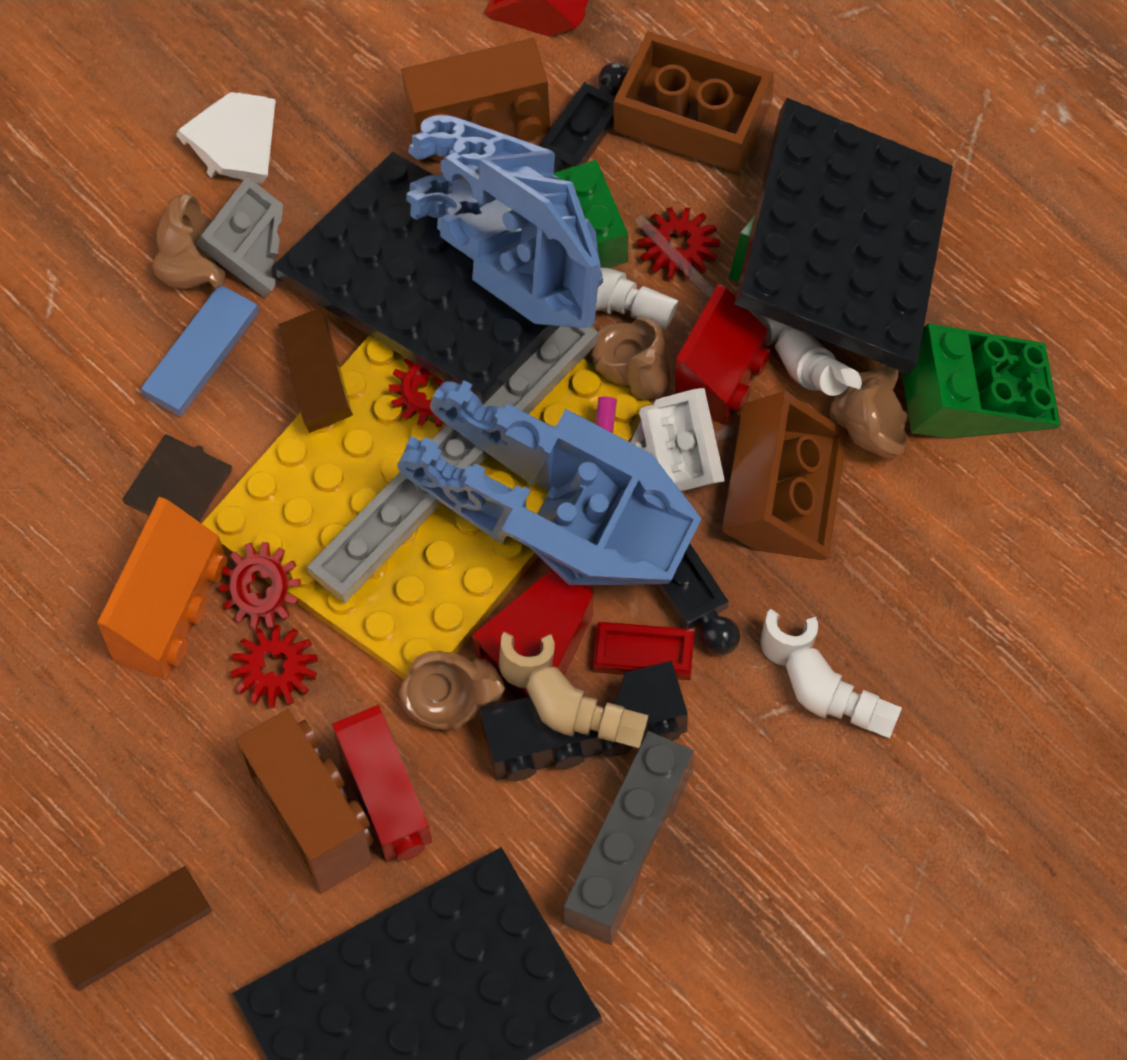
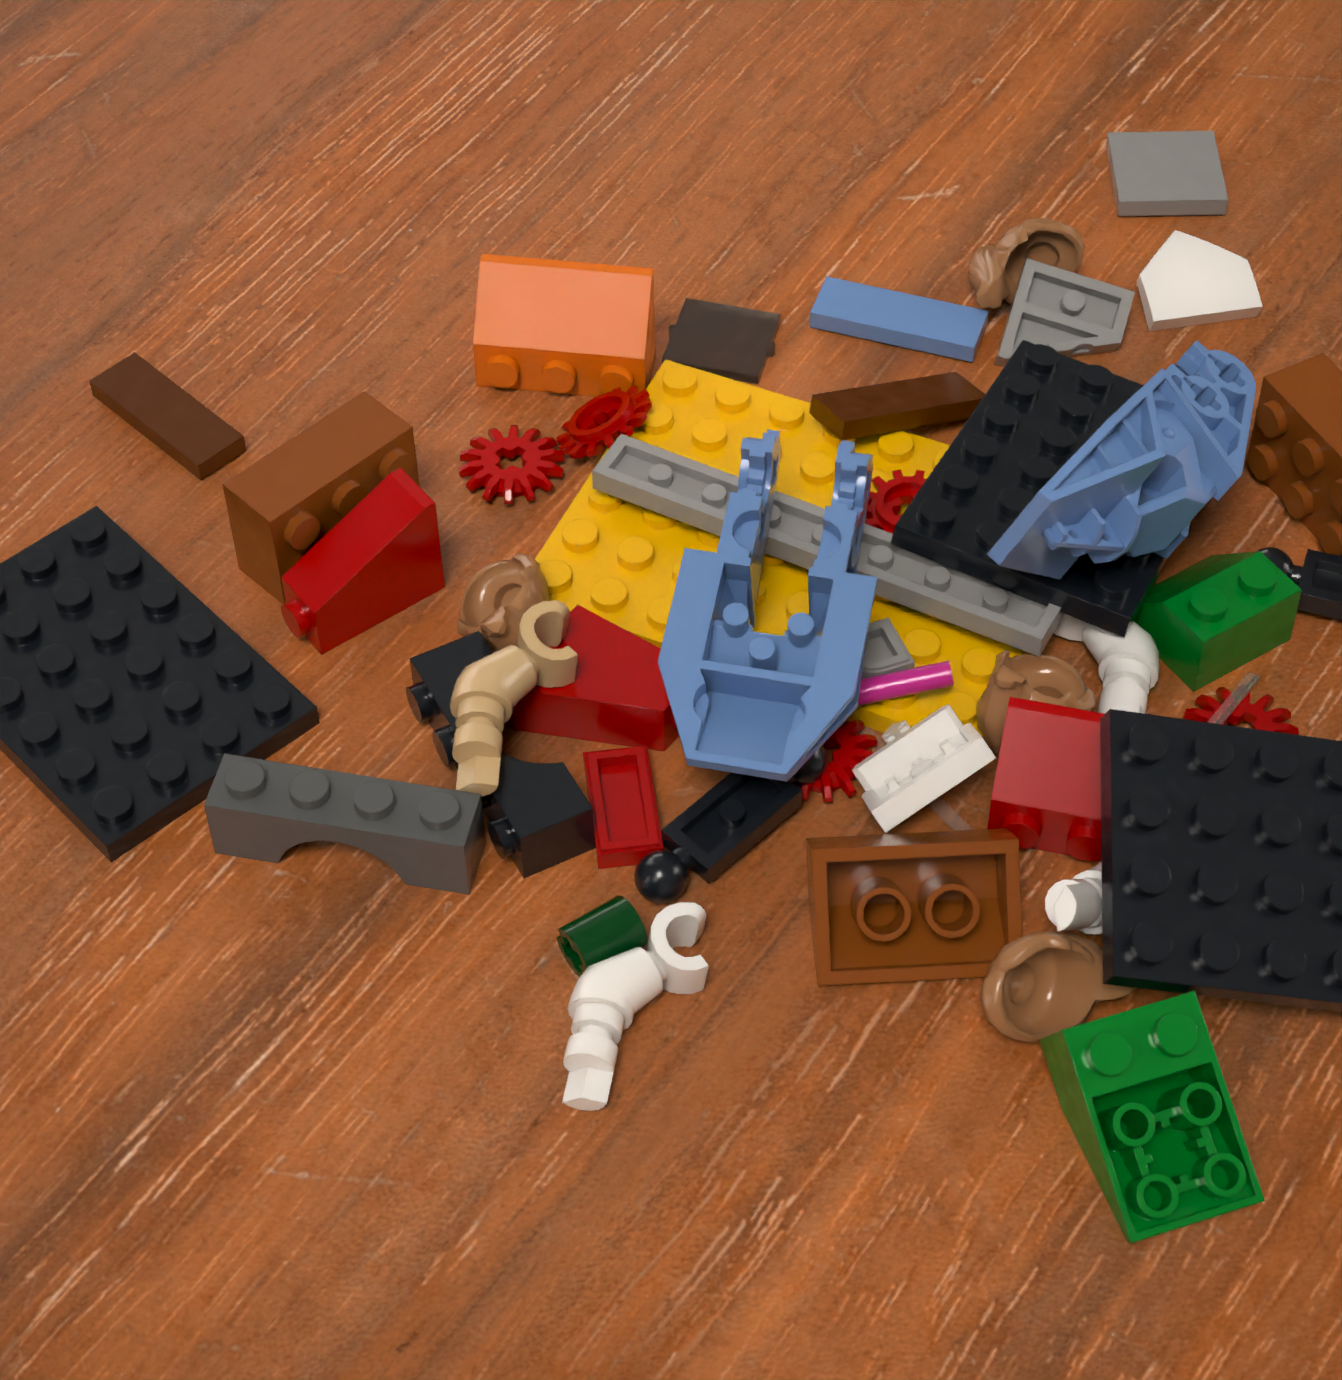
camera: 75 degrees right, 15 degrees down
(96, 118) = (1166, 173): none -> light grey tile
(766, 683) = (601, 934): none -> dark green piece

